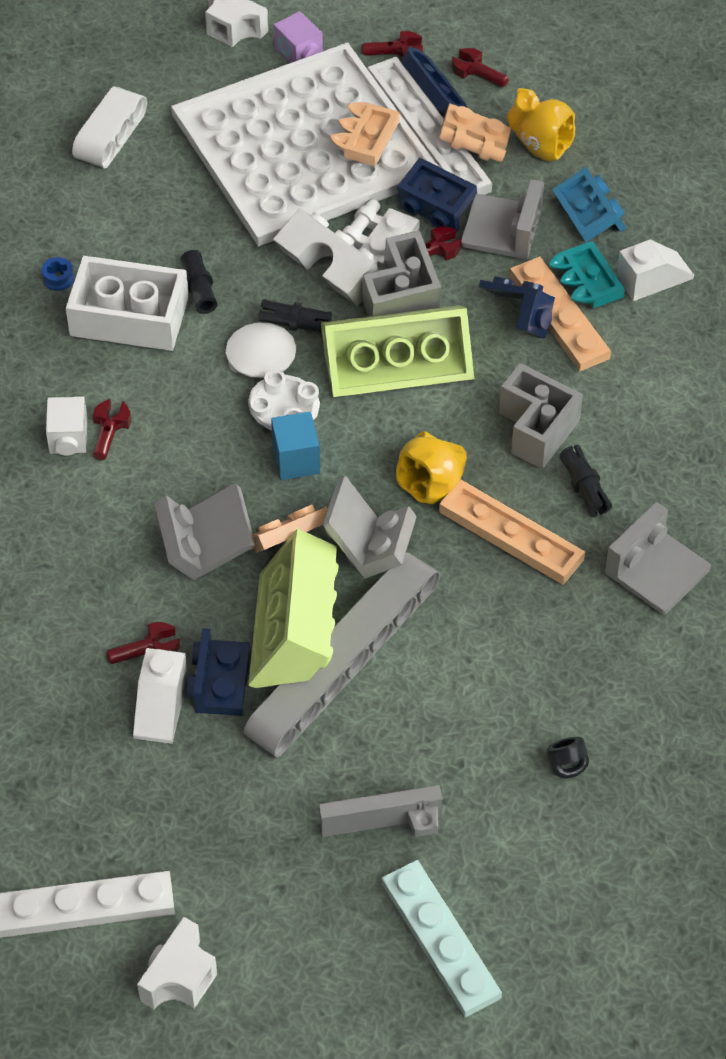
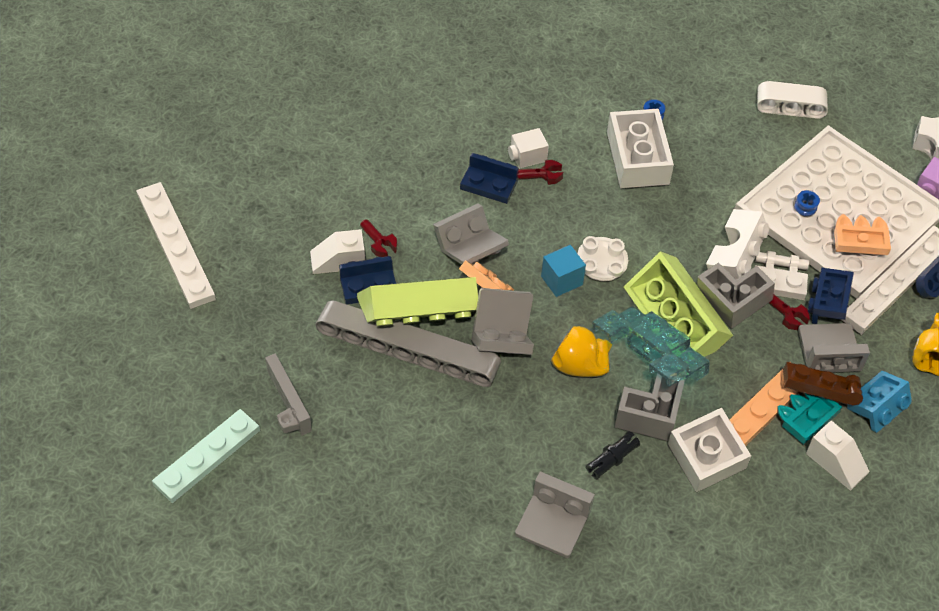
camera: 70 degrees right, 0 degrees up
(97, 486) = (490, 178): none -> dark blue bracket
(178, 969) = (145, 316): white brick -> none
(199, 282) = (683, 184): black pin -> none
(260, 349) = (643, 235): white dish -> none
(293, 315) = (679, 243): black pin -> none
(295, 159) = (805, 209): none -> blue bush
(452, 379) = (656, 342): none -> clear light blue bracket
(475, 133) = (911, 304): light nougat plate -> none
(512, 532) = (546, 419): light nougat plate -> none
(536, 306) = (756, 379): dark blue bracket -> none
(560, 244) = (823, 383): none -> reddish brown plate
(567, 752) = (370, 495): black tile -> none
(617, 379) = (709, 449): none -> white brick

